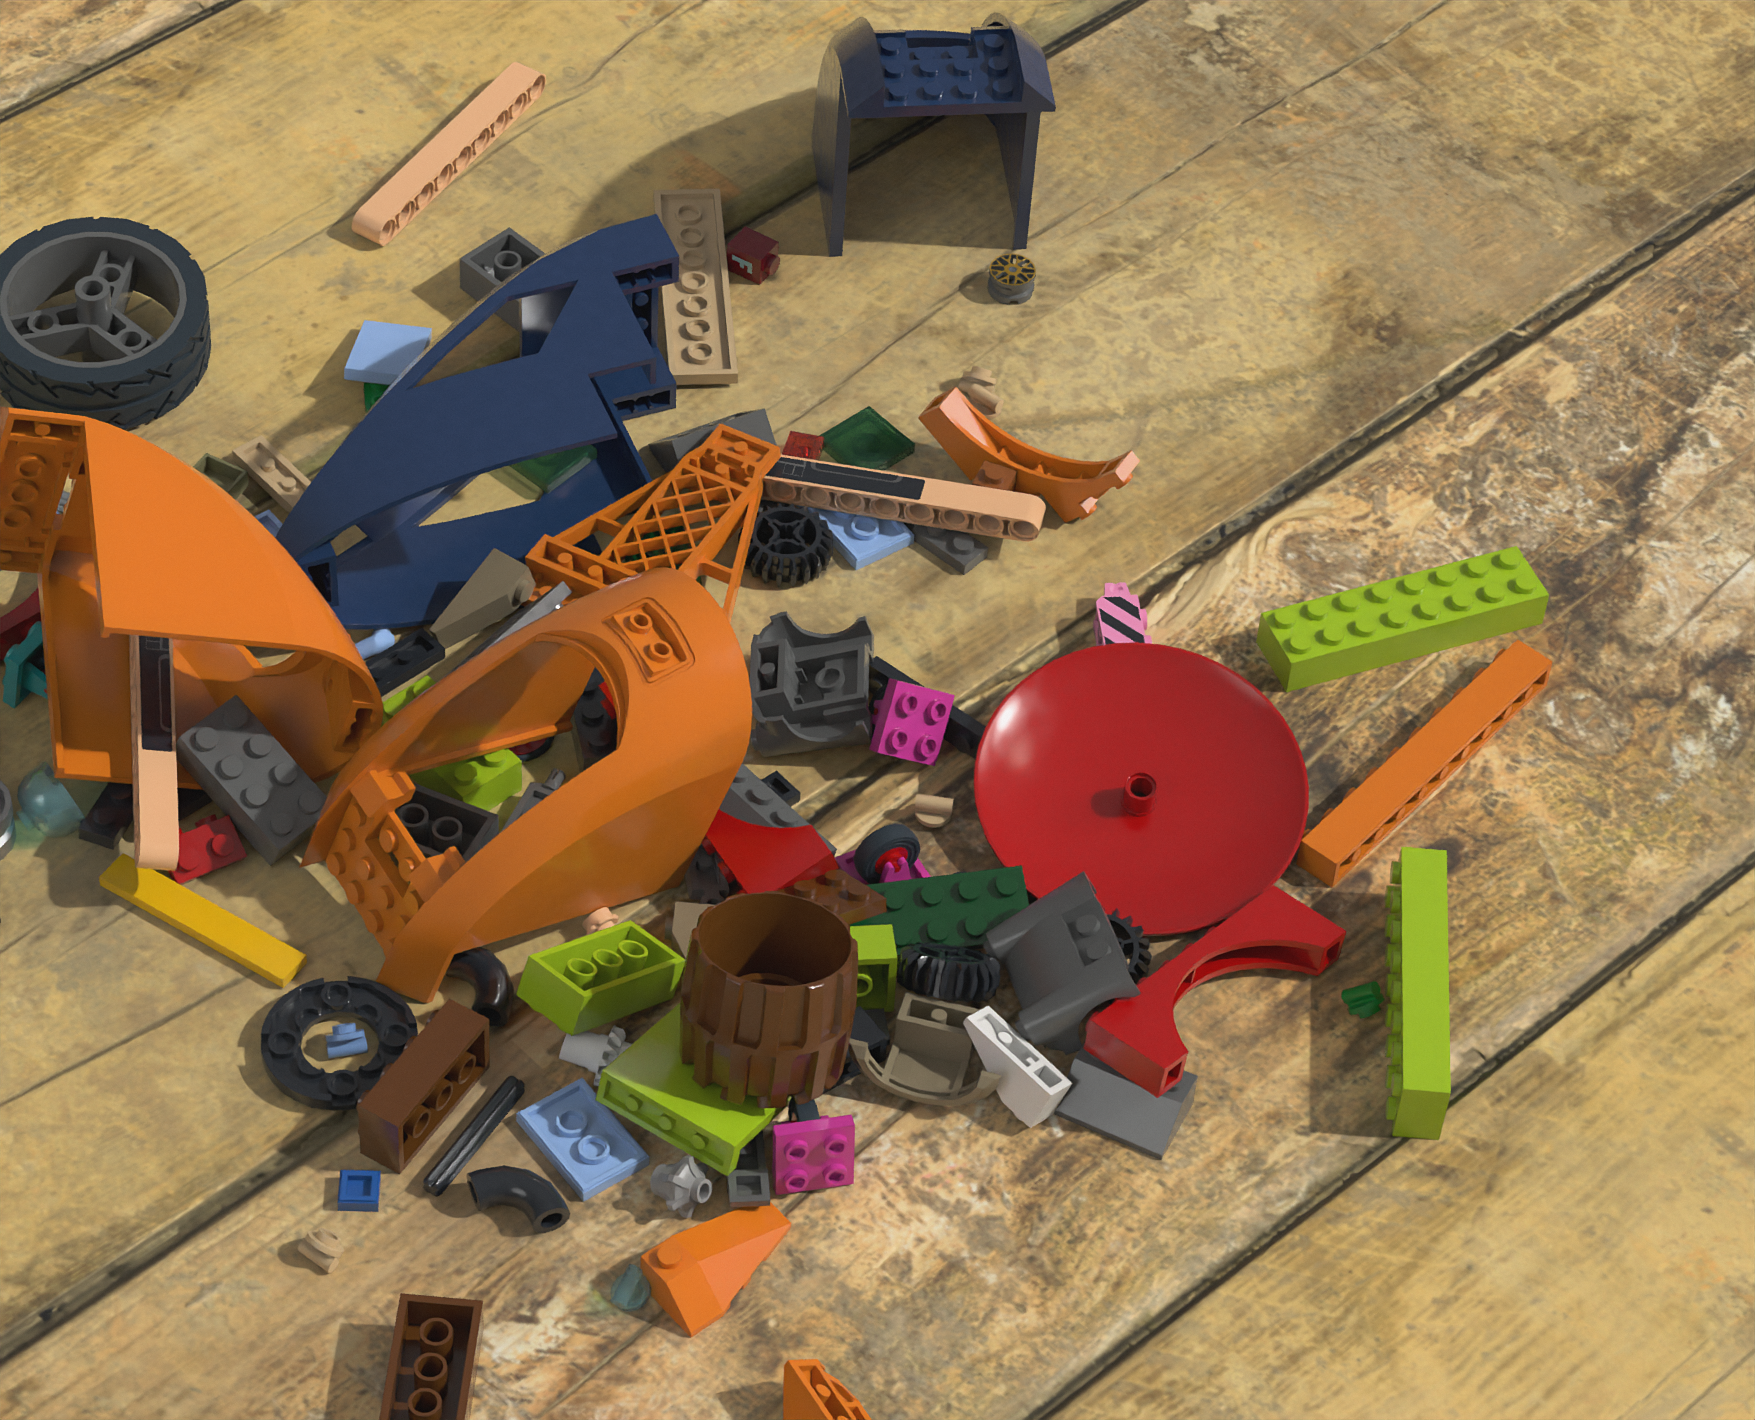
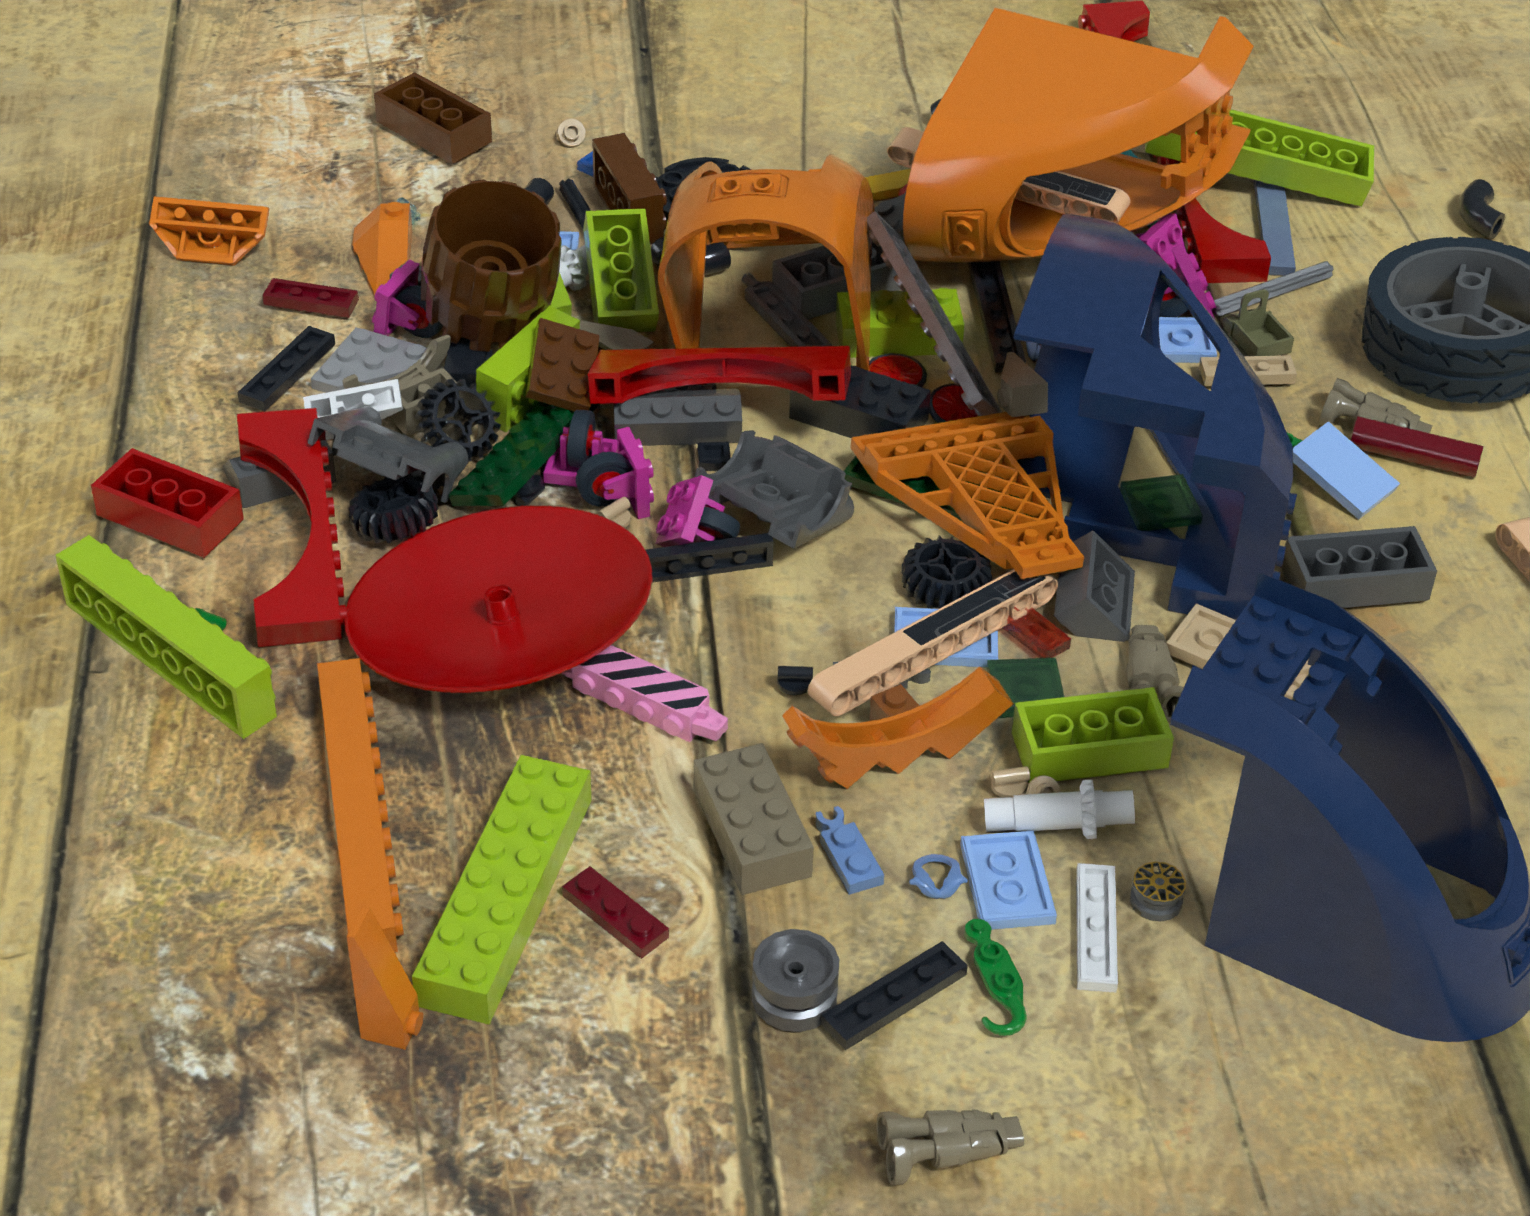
camera: 130 degrees right, 5 degrees down
(275, 360) = (1350, 402): none -> dark tan piece
(303, 326) = (1417, 446): none -> dark red brick
(782, 370) = (1153, 667): none -> dark tan piece
(856, 1268) = (310, 297): none -> dark red plate
(895, 361) = (1093, 734): none -> lime brick
(896, 801) = (617, 475): none -> plate
(902, 1149) = (369, 357): none -> light grey plate
(982, 337) = (1061, 810): none -> white gear
(983, 1202) = (286, 368): none -> black plate
(1005, 579) = (794, 679): none -> black plate
(1073, 303) = (1096, 928): none -> white tile
(1080, 367) = (1008, 879): none -> light blue tile
(1134, 406) = (926, 884): none -> medium blue piece
(1155, 456) = (848, 853): none -> medium blue plate
(1177, 329) = (998, 976): none -> green piece
(1186, 518) = (753, 819): none -> dark tan brick
(1255, 368) = (893, 995): none -> black plate
(1269, 1128) = (167, 502): none -> red brick
(1311, 410) = (794, 979): none -> flat silver wheel
(1346, 553) = (615, 912): none -> dark red plate
(1348, 286) = (948, 1140): none -> dark tan piece
(1581, 596) = (382, 989): none -> orange wedge

